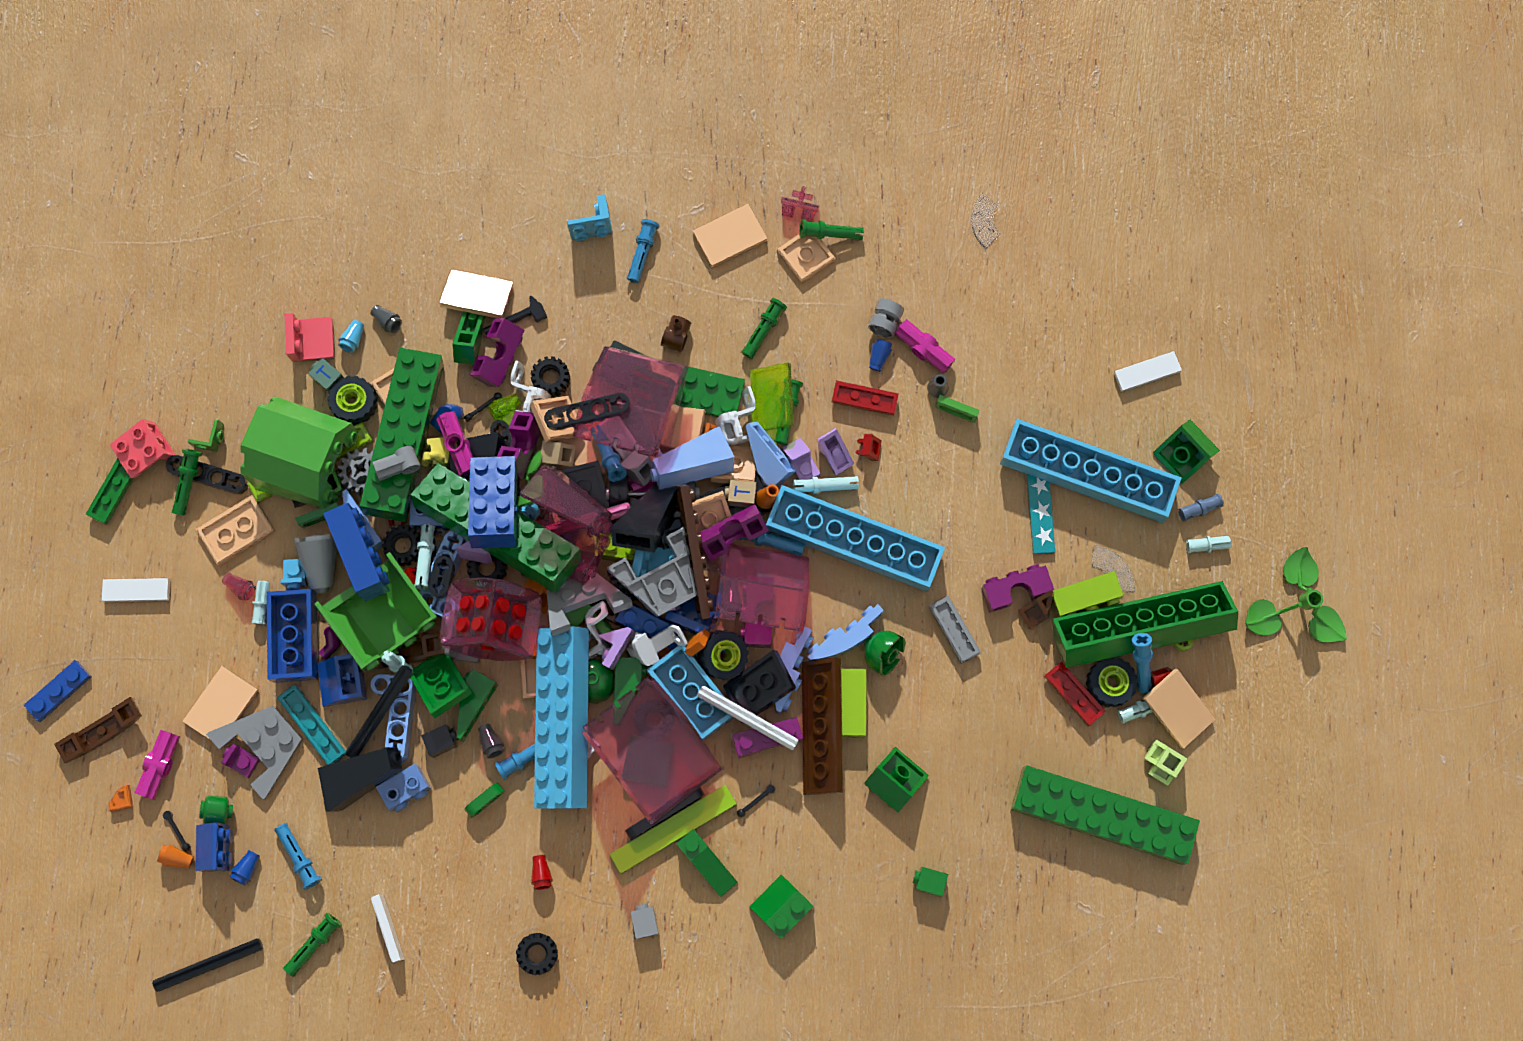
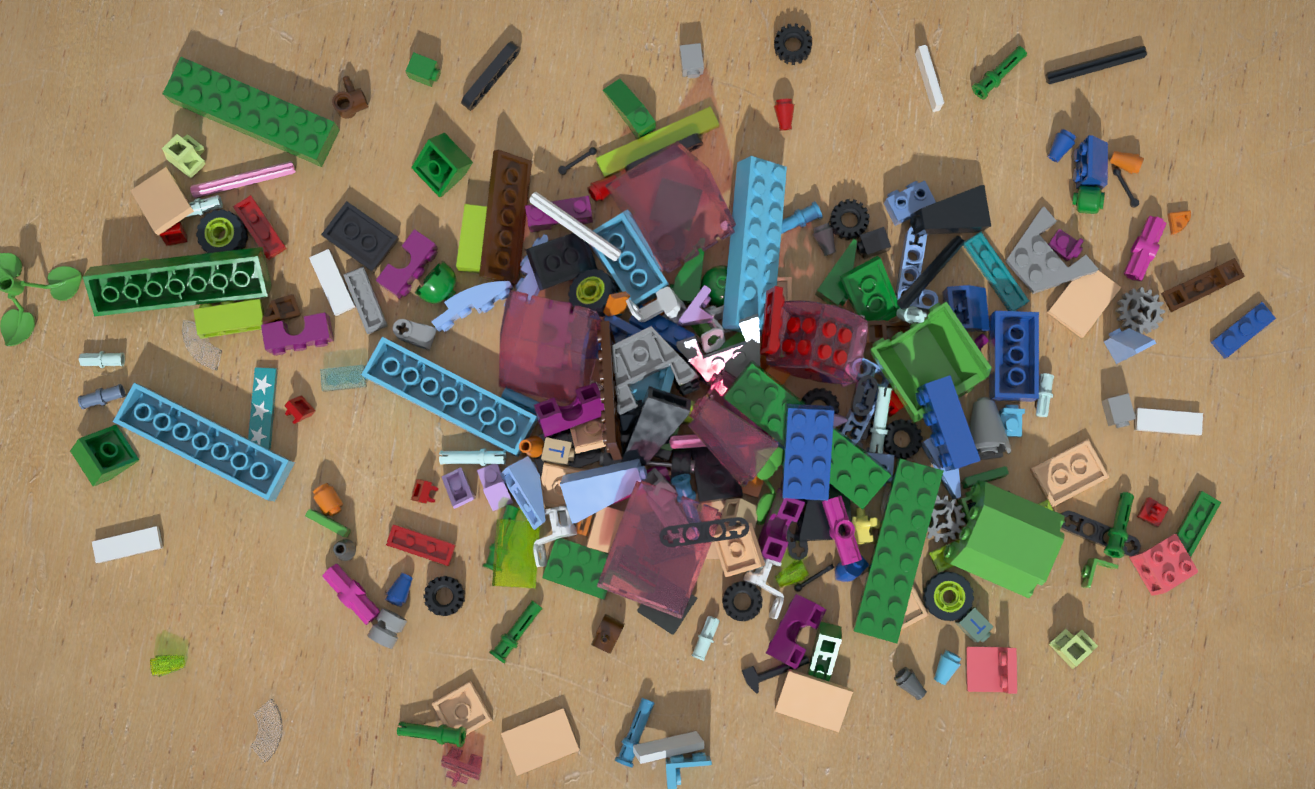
camera: 175 degrees left, 5 degrees up
(153, 500) = (1152, 512): none -> red tile
(168, 706) = (1143, 319): none -> light grey gear
(176, 656) = (1127, 343): none -> light blue slope
(186, 594) = (1118, 410): none -> light grey brick
(229, 364) = (1073, 648): none -> yellowish green brick
(239, 586) = (1065, 413): clear pink cone -> none
(301, 864) = (1004, 143): dark azure pin -> none
(402, 461) = (900, 509): light grey piece -> none
(478, 770) = (855, 208): none -> black tyre
(484, 800) = (833, 184): green beam -> none
(537, 633) = (772, 321): none -> red plate
(583, 340) = (705, 638): none -> light aqua axle
(609, 238) = (668, 747): none -> white tile
(730, 770) = (598, 189): none -> red cone
(781, 906) = (563, 61): green slope -> none
(836, 341) = (431, 591): none -> black tyre
(857, 883) = (490, 75): none -> black beam
(897, 600) = (418, 334): none -> light grey piece
(925, 652) = (400, 280): none -> magenta arch
(961, 430) = (327, 500): none -> orange brick
(965, 549) = (342, 378): none -> clear light blue plate
(970, 694) = (360, 236): none -> black plate
(991, 645) = (332, 282): none -> white tile
(996, 841) = (355, 97): none -> reddish brown piece
(1003, 514) = (299, 409): none -> red tile
(1088, 267) = (166, 664): none -> clear neon green cone
(1101, 743) = (242, 179): none -> bright pink axle
(1143, 656) = (185, 245): dark azure pin -> none

